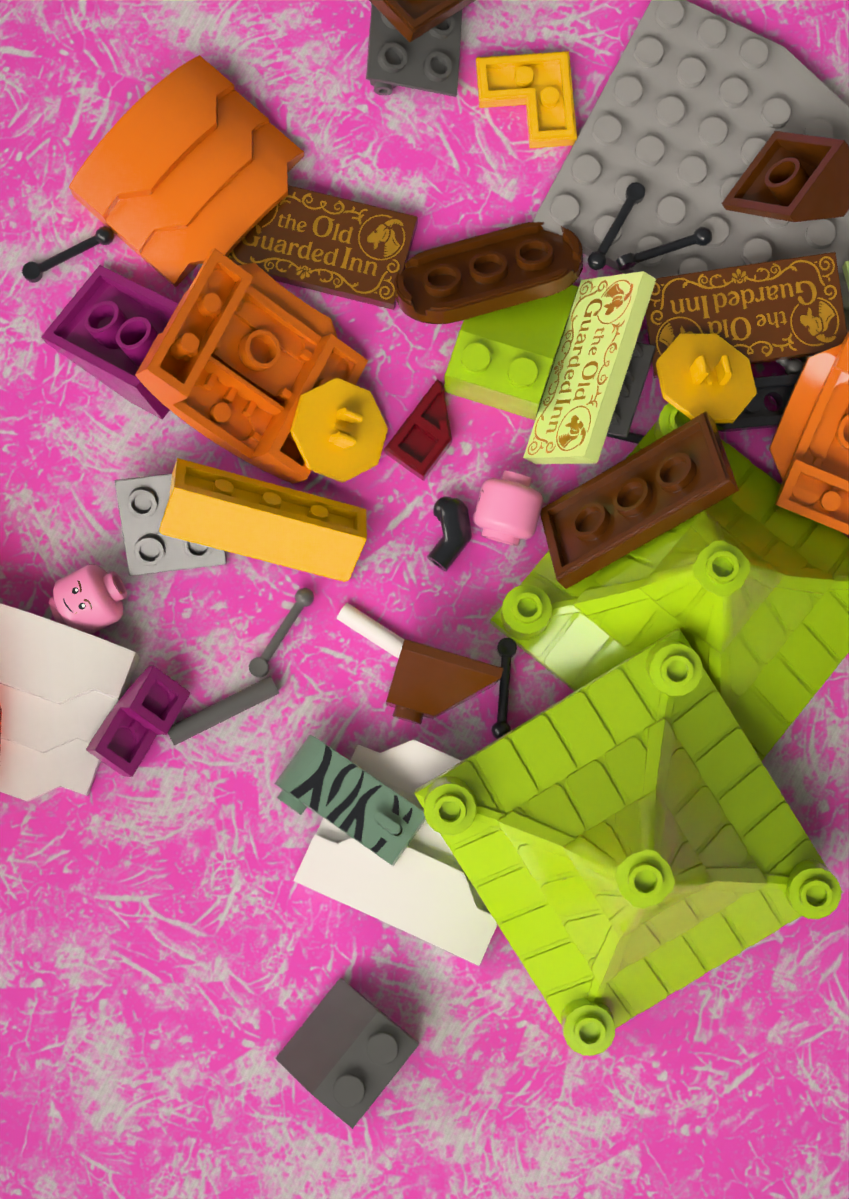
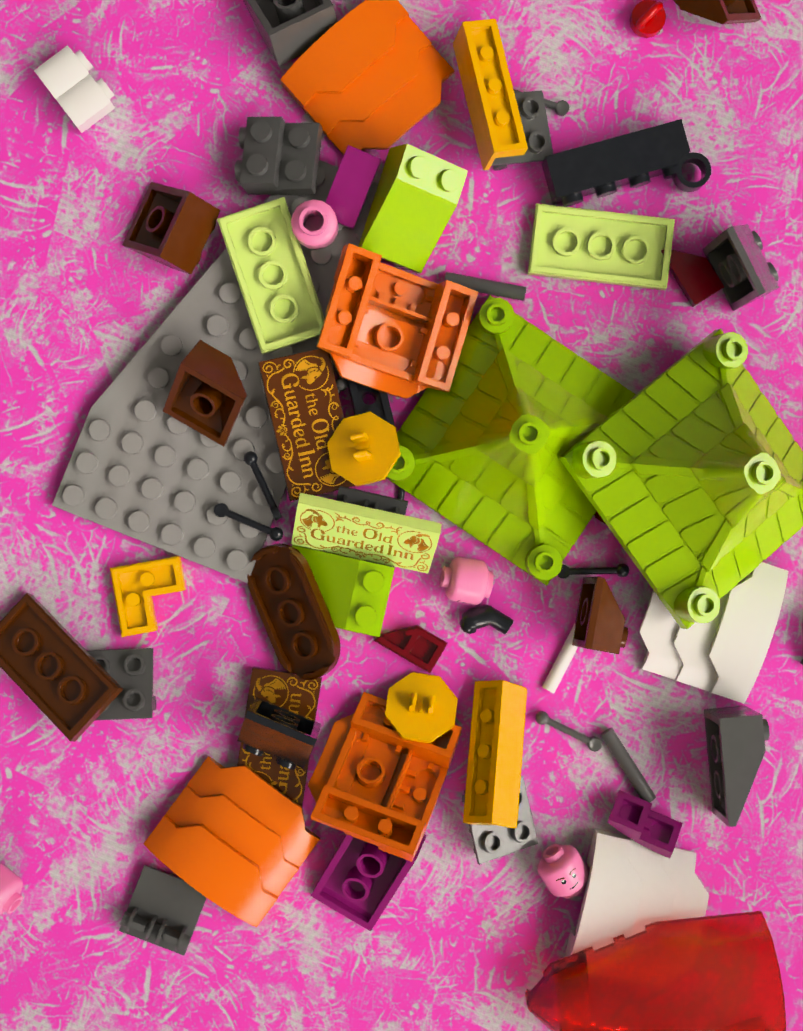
camera: 100 degrees left, 10 degrees up
(33, 271) = (320, 942): black hinge -> none
(105, 73) = (163, 910): none -> dark grey hinge
(239, 853) = (734, 755): none -> dark grey slope
(331, 227) = (278, 733): none -> black slope
(349, 799) = (687, 673): sand green door -> none
(637, 500) = (461, 491): reddish brown tile -> none

